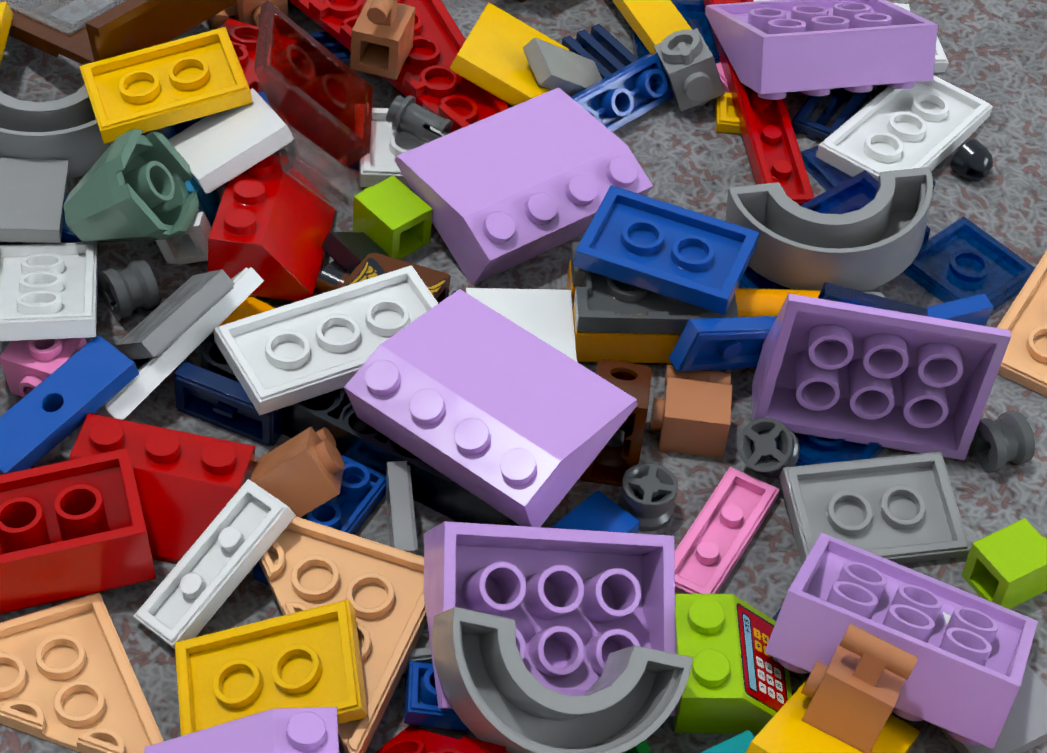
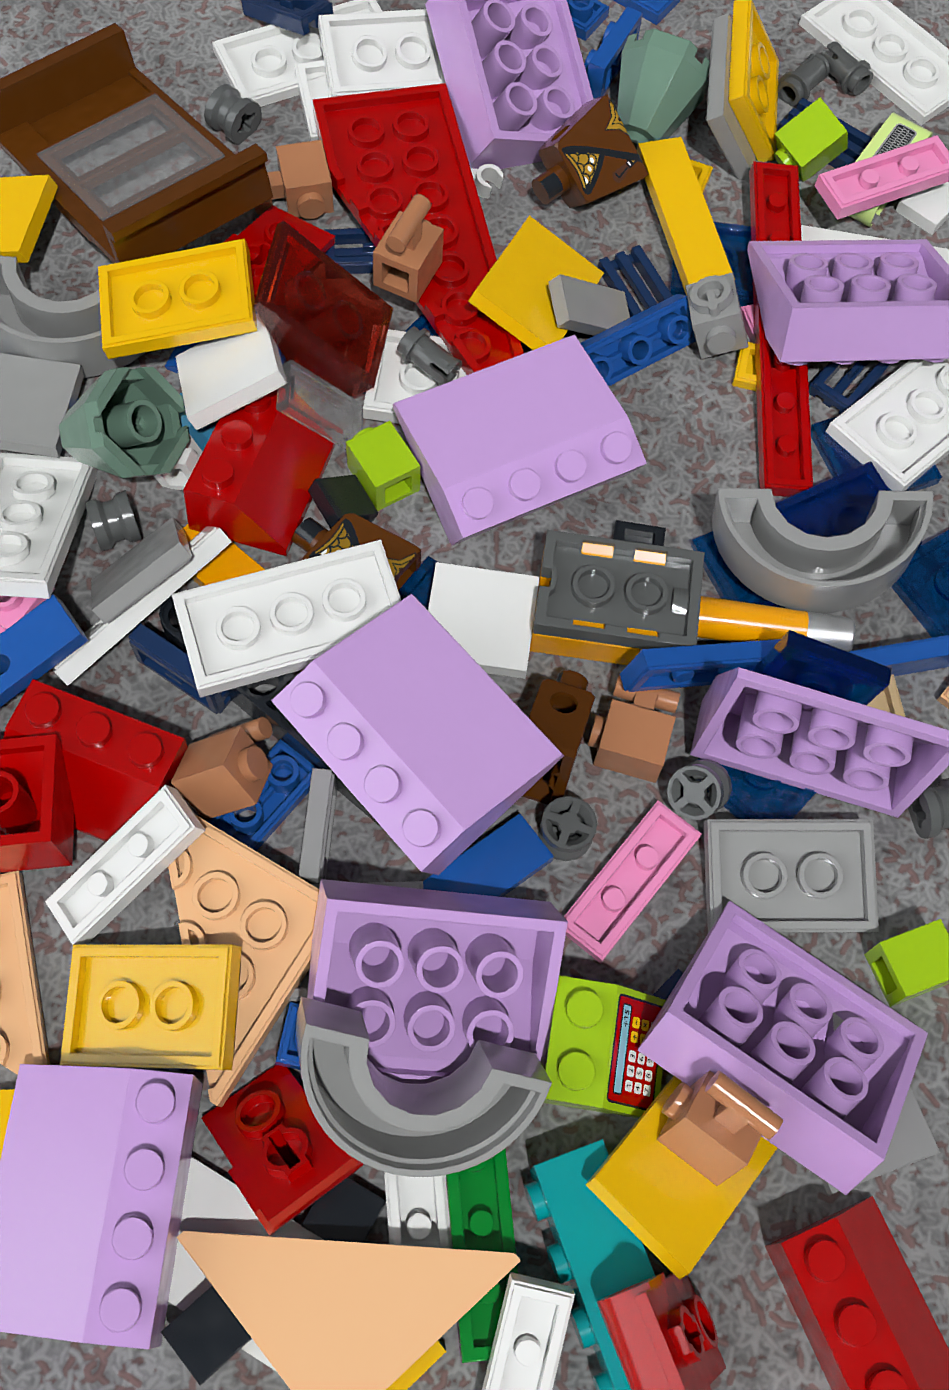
camera: 10 degrees right, 20 degrees up
(666, 249) = (638, 558): blue plate -> none

